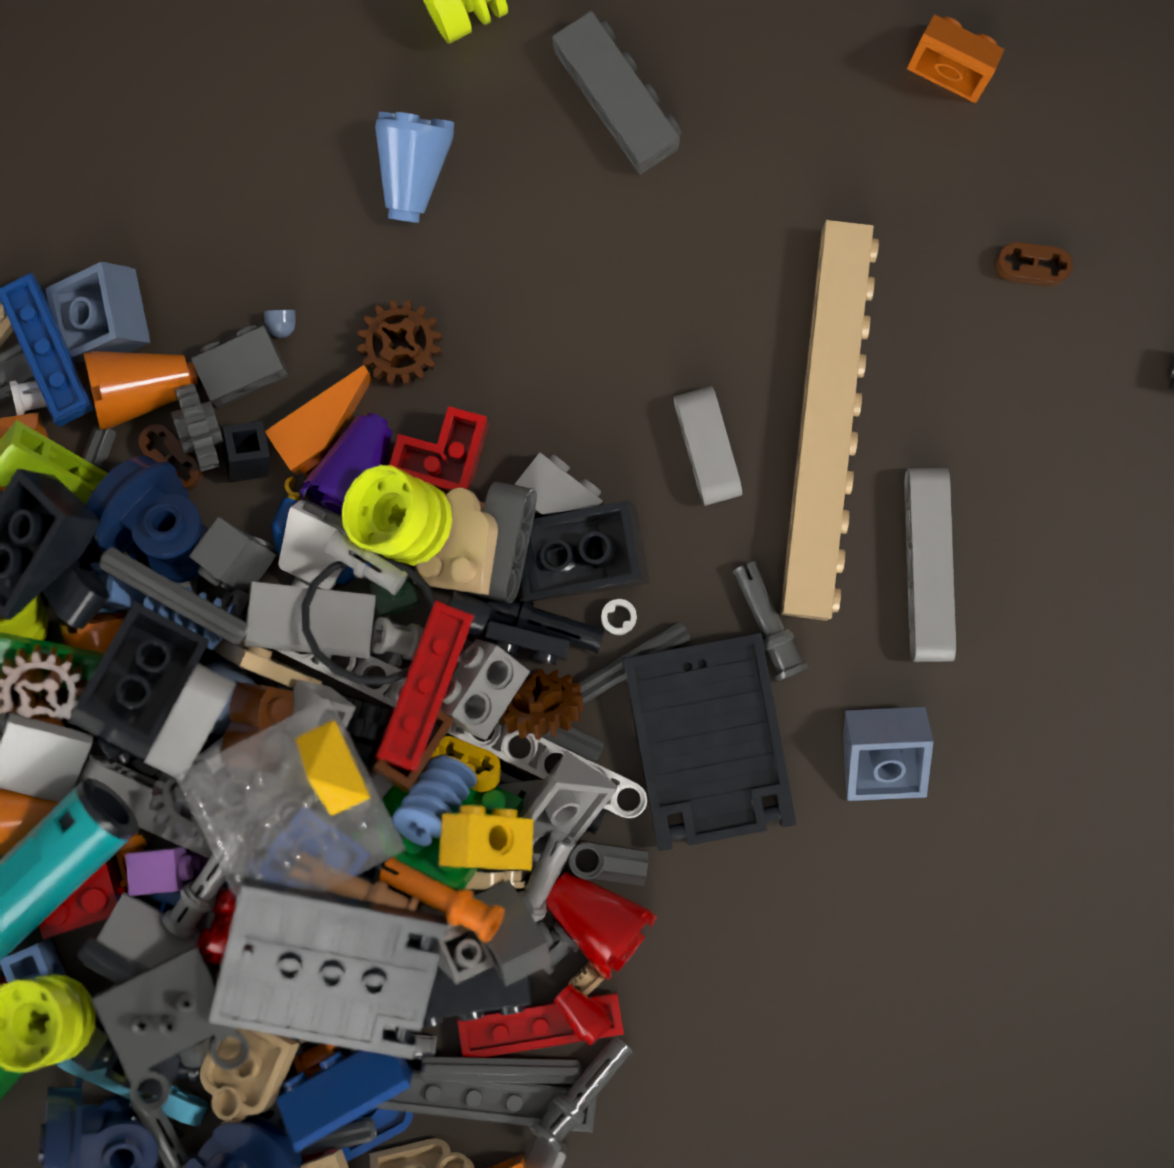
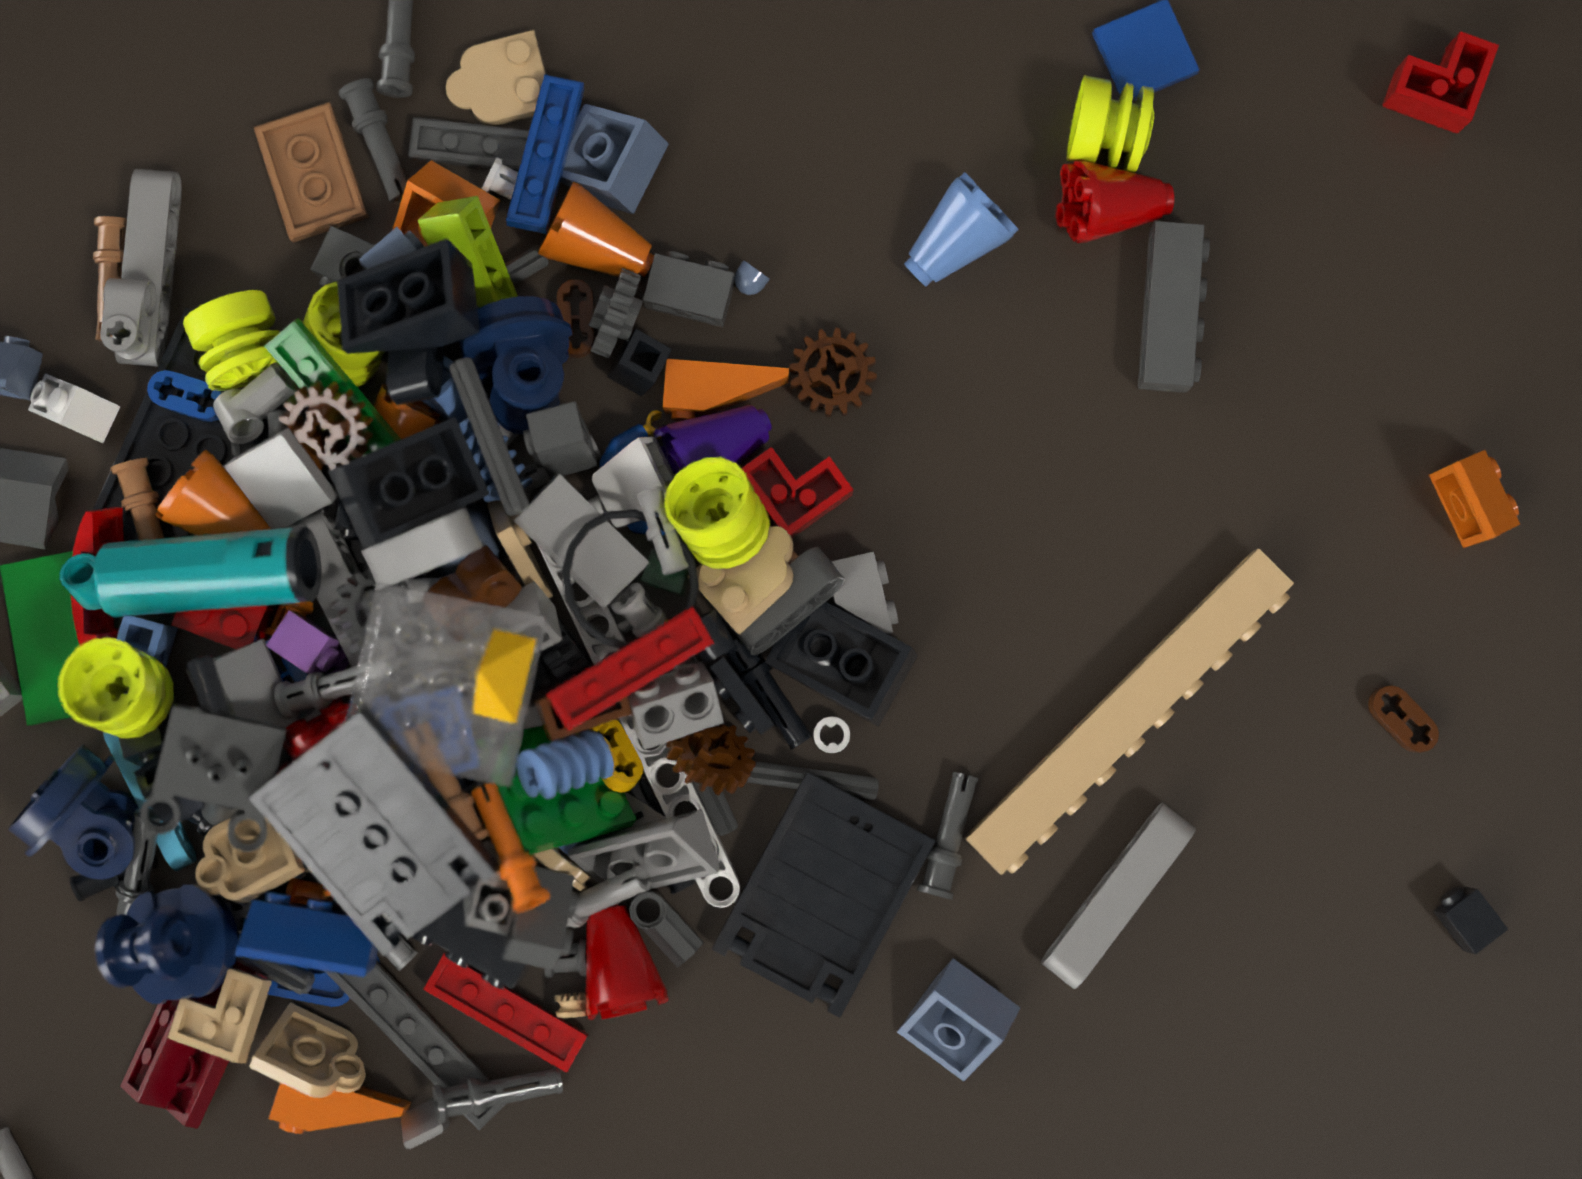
camera: 40 degrees right, 0 degrees up
(486, 840) = (579, 831): yellow brick -> none
(499, 1070) = (445, 1021): dark grey axle -> none
(504, 49) = (1108, 200): none -> red cone
(583, 1014) = (546, 1031): red cone -> none
(708, 446) = (1014, 654): light grey beam -> none

